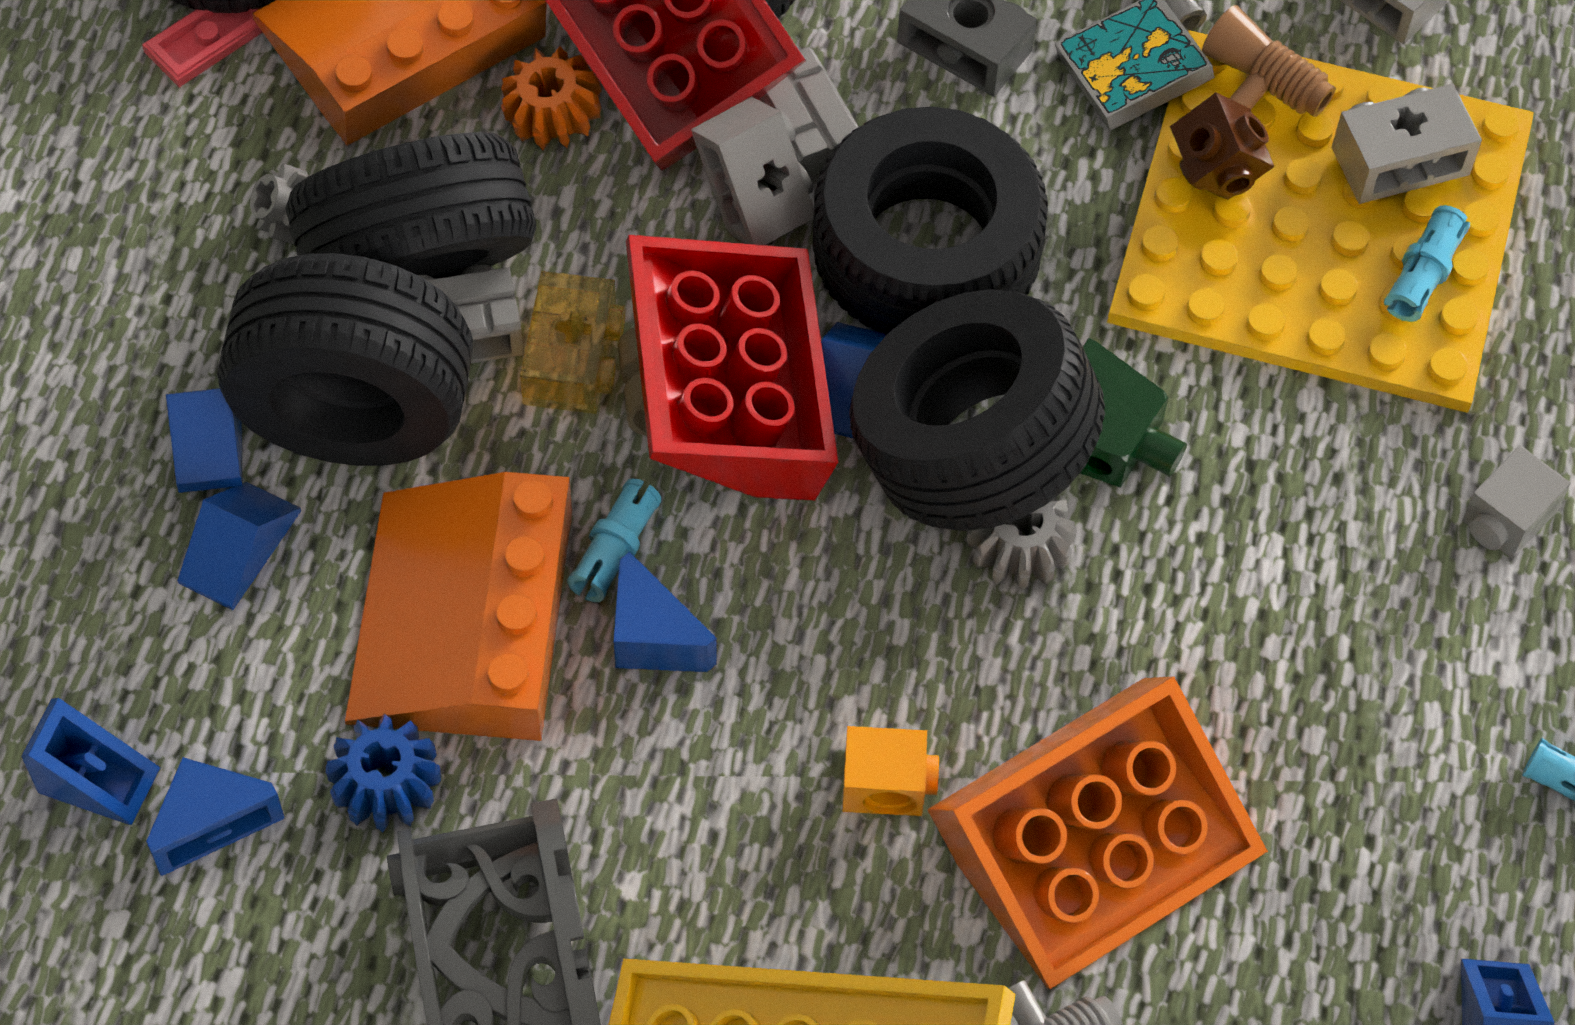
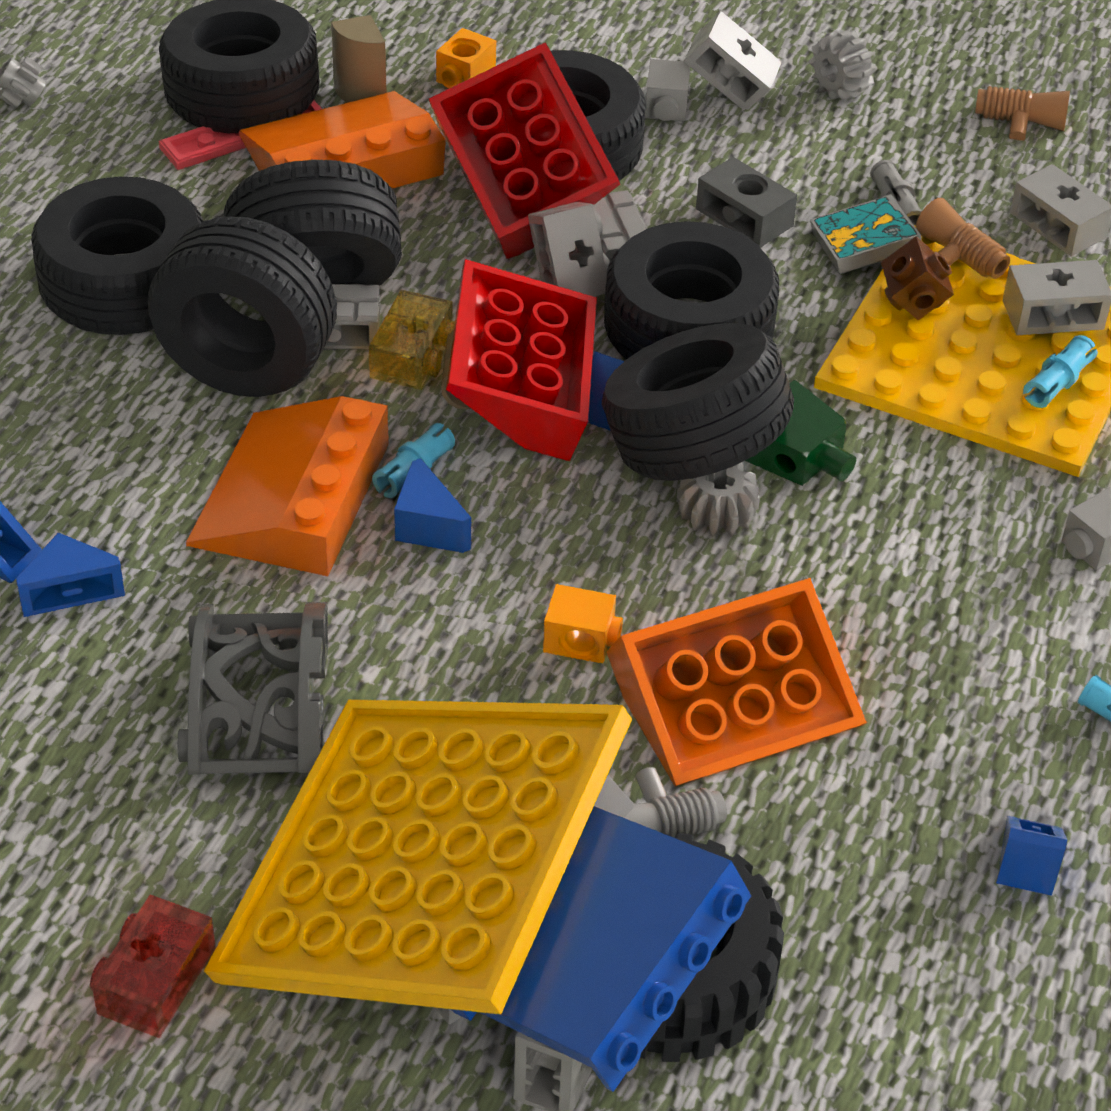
camera: 10 degrees right, 15 degrees down
(125, 206) = (79, 242): none -> black tyre
(204, 441) = (133, 355): blue slope -> none
(234, 541) = (135, 423): blue slope -> none
(366, 790) = (204, 571): blue gear -> none
(551, 98) = (436, 201): orange gear -> none

